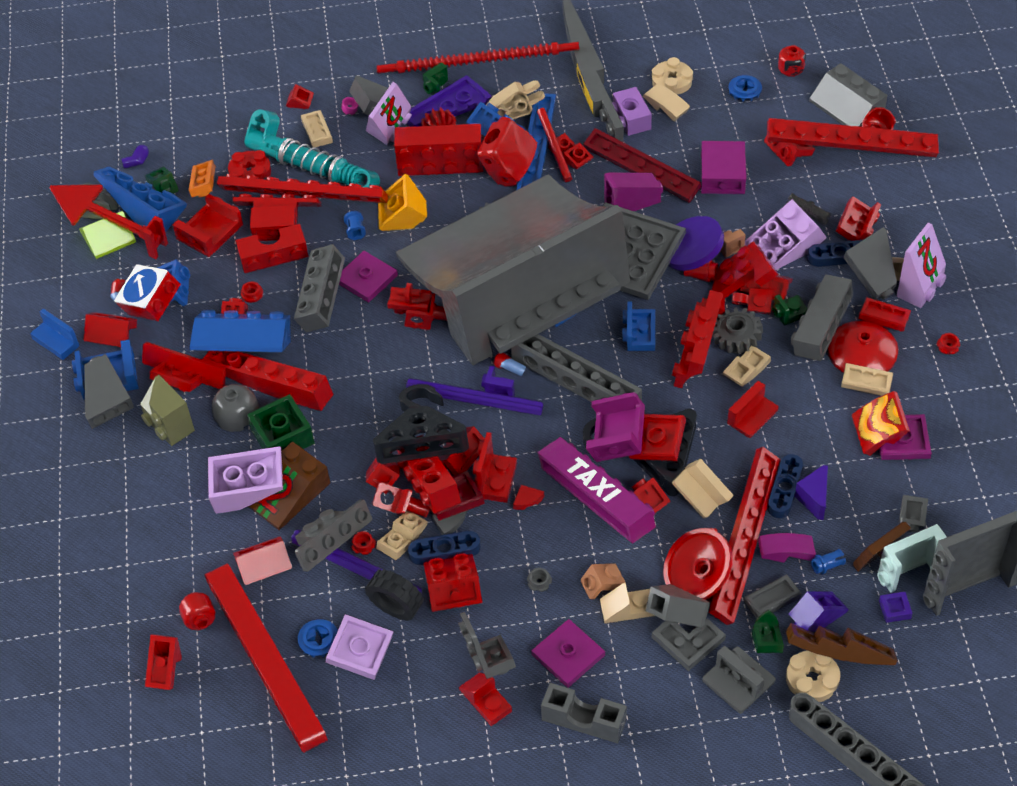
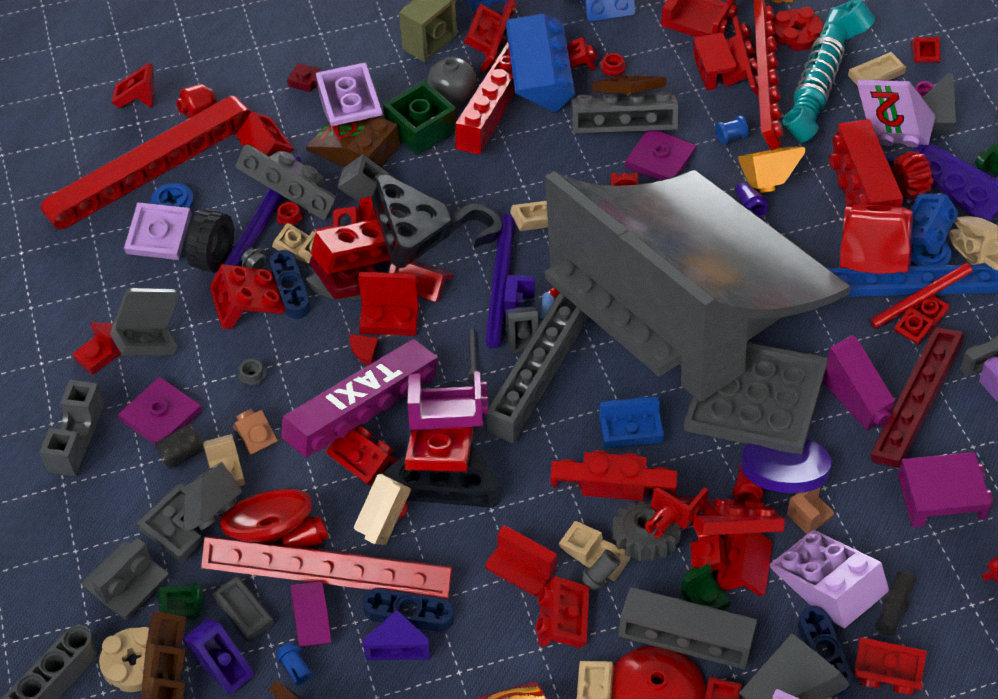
camera: 80 degrees right, 0 degrees up
(189, 522) = (303, 77): none -> dark red plate
(258, 256) = (666, 57): red arch -> none
(291, 277) = (629, 84): none -> reddish brown plate
(344, 478) = (360, 178): none -> dark grey slope
(412, 571) = (253, 258): none -> dark grey plate
(413, 360) = (530, 215): none -> tan plate
(431, 225) = (751, 199): none -> dark purple cone
(535, 380) = (520, 327): none -> dark grey slope
(568, 425) = (472, 355): none -> dark grey piece
(613, 633) = (179, 446): none -> clear smoke piece
(734, 303) = (671, 510): none -> red bracket
(769, 361) = (600, 570): none -> dark grey pin
(800, 391) = (563, 613): none -> red bracket

